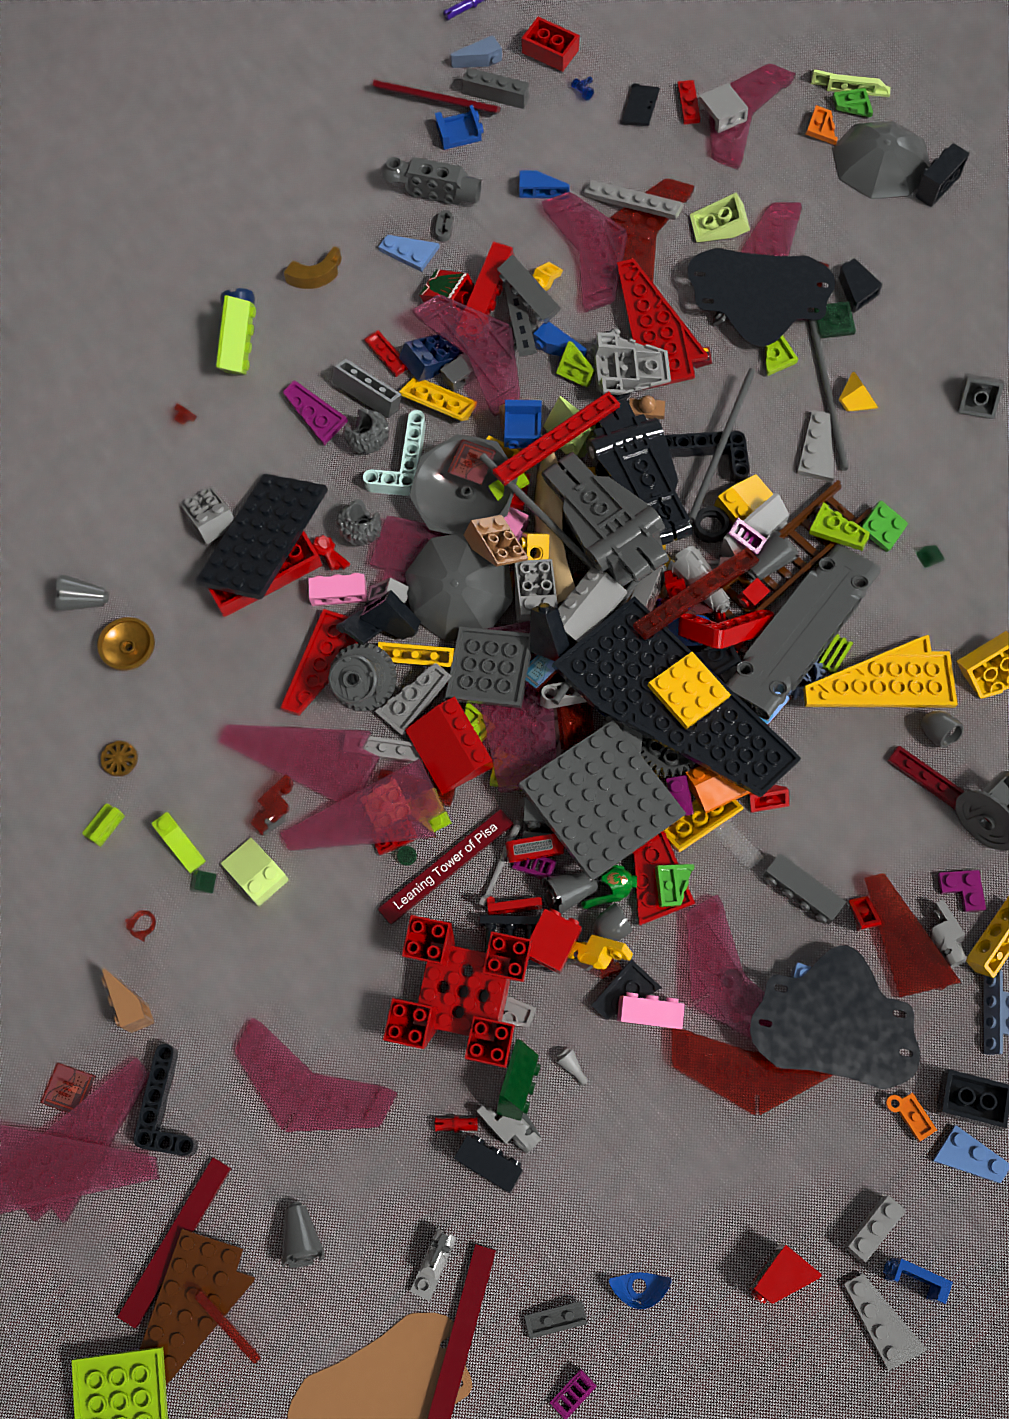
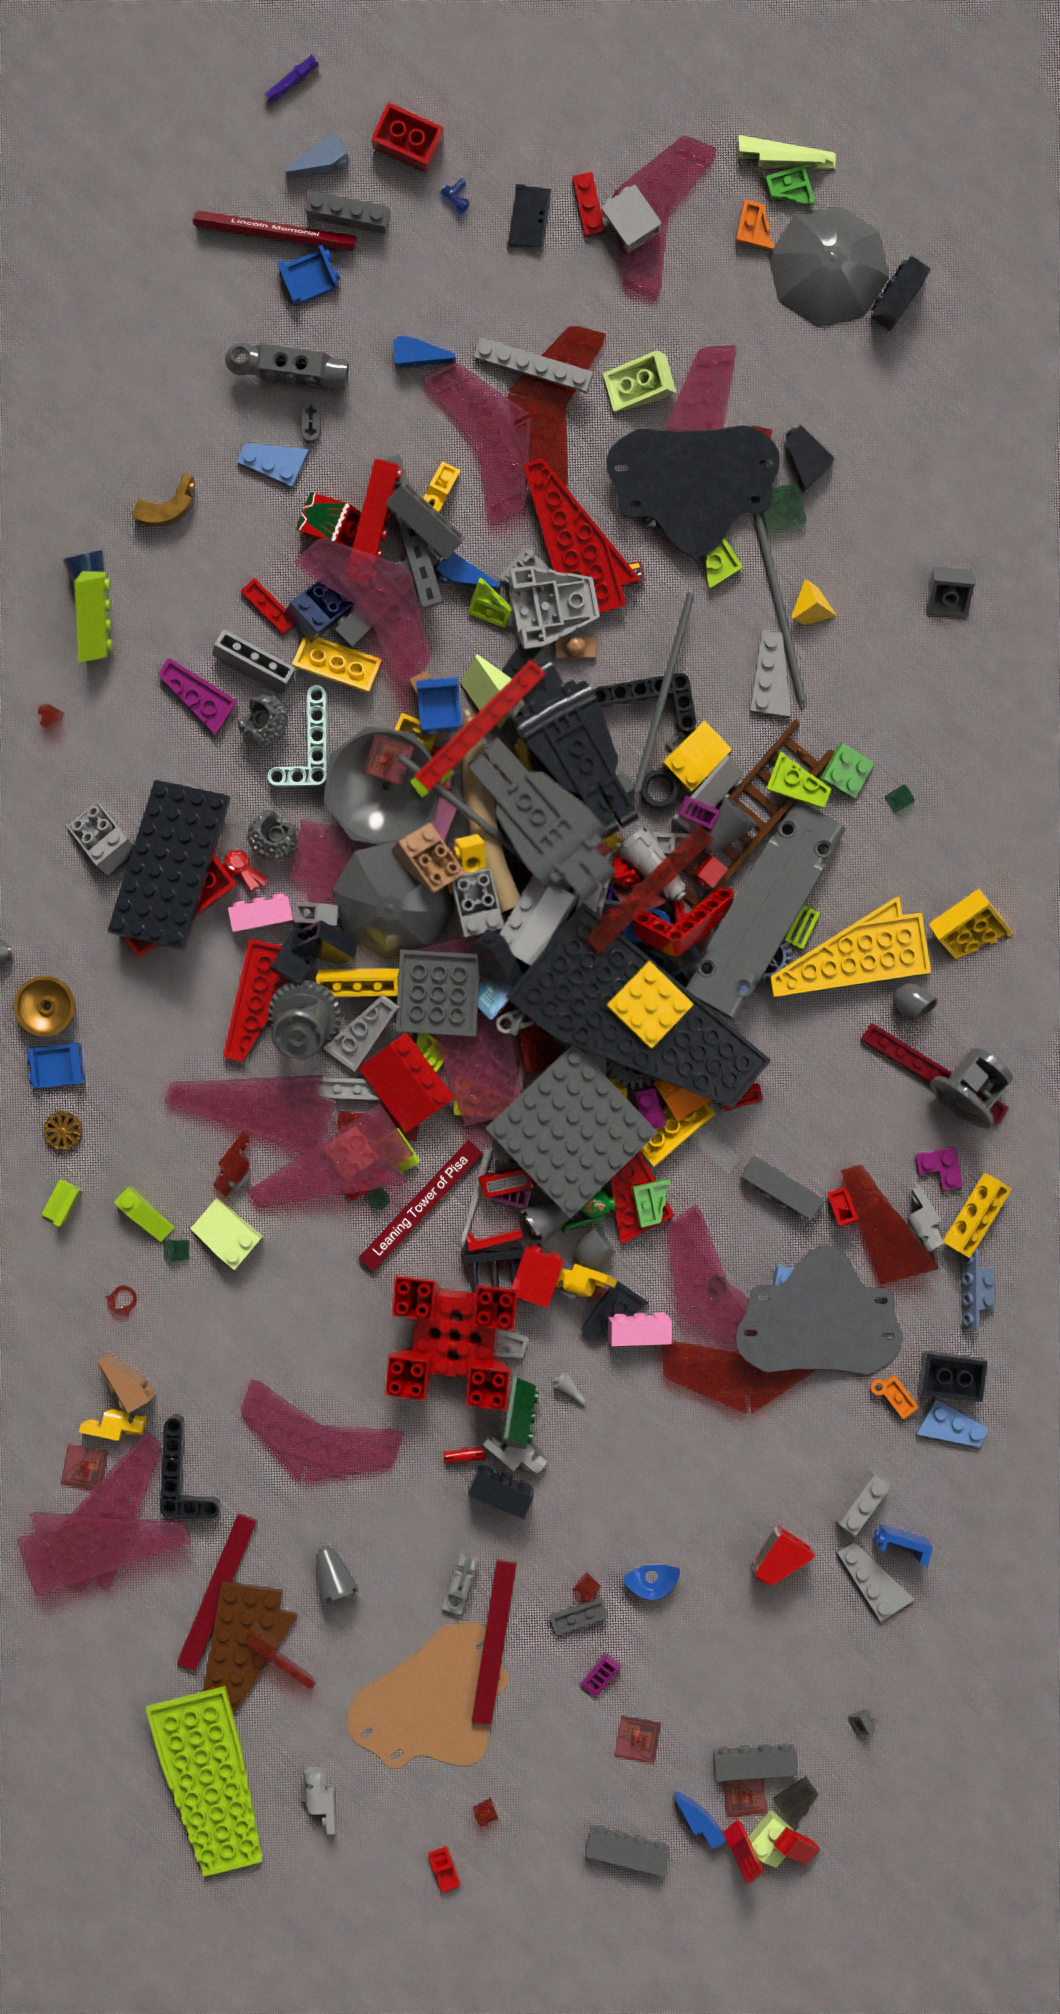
camera: 10 degrees left, 20 degrees up
(109, 1045) = (115, 1423): none -> yellow plate
(125, 700) = (56, 1065): none -> blue panel
(569, 1286) = (587, 1587): none -> clear red tile

